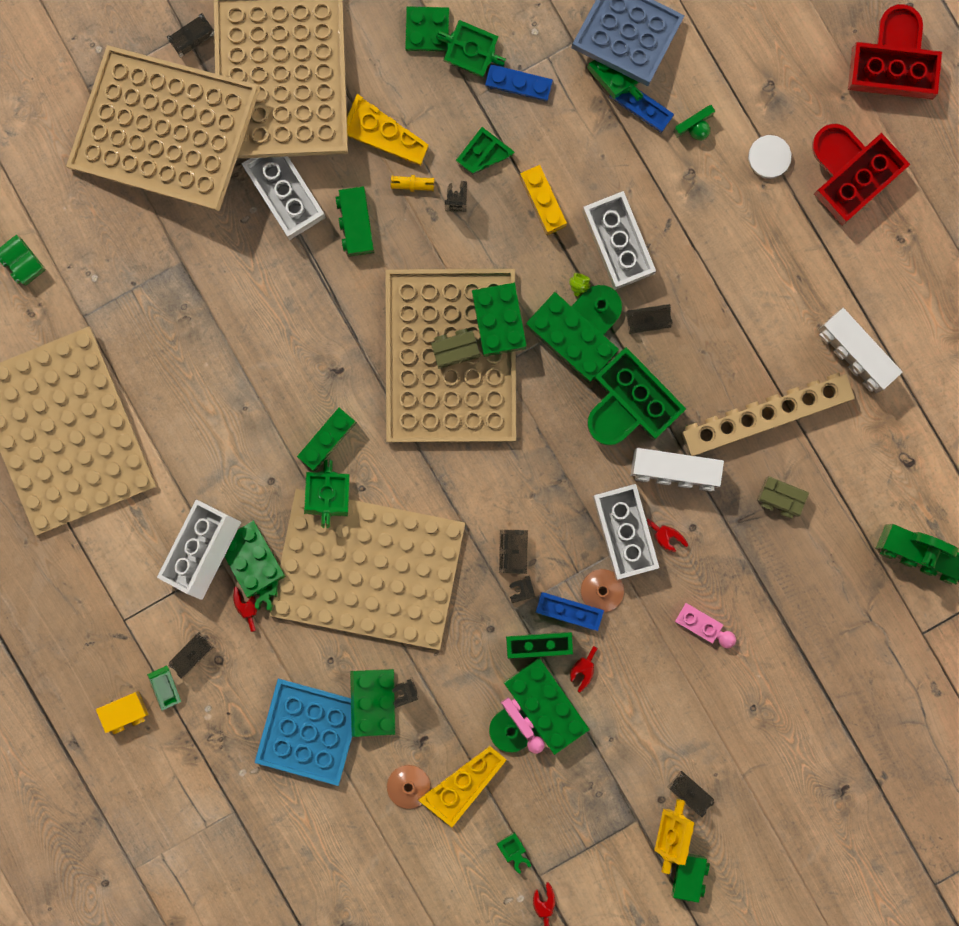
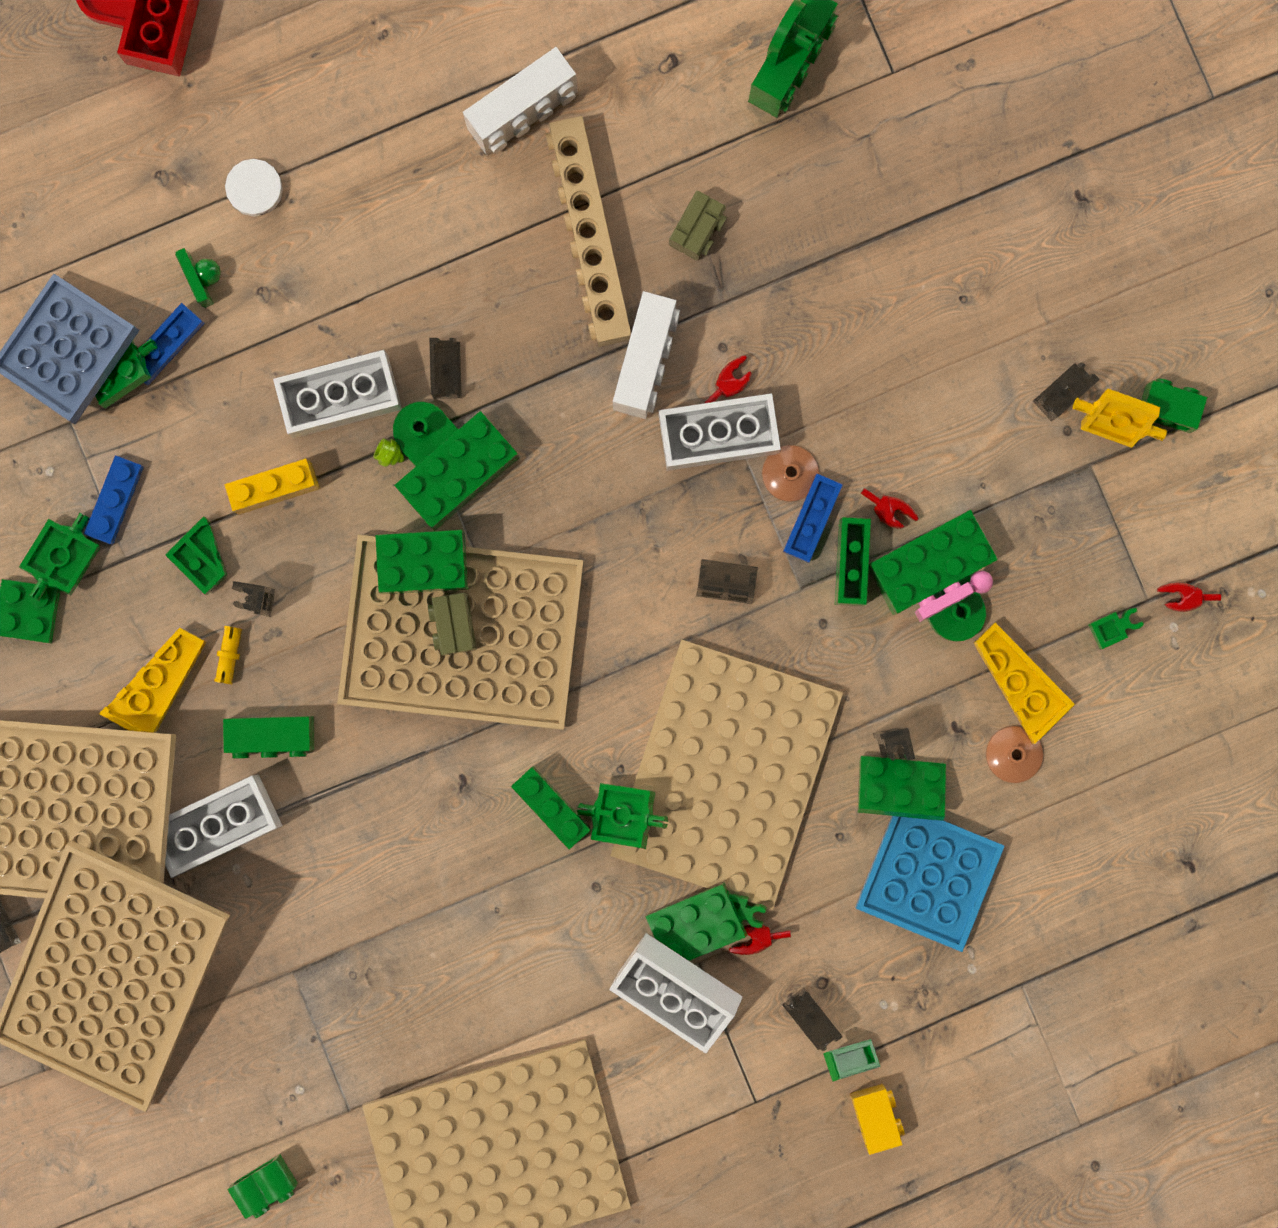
camera: 85 degrees left, 0 degrees up
(525, 589) = (778, 572): clear smoke hinge -> none
(632, 400) = (550, 401): green brick -> none
(704, 626) = (852, 347): bright pink plate -> none
(855, 169) = (284, 76): red brick -> none

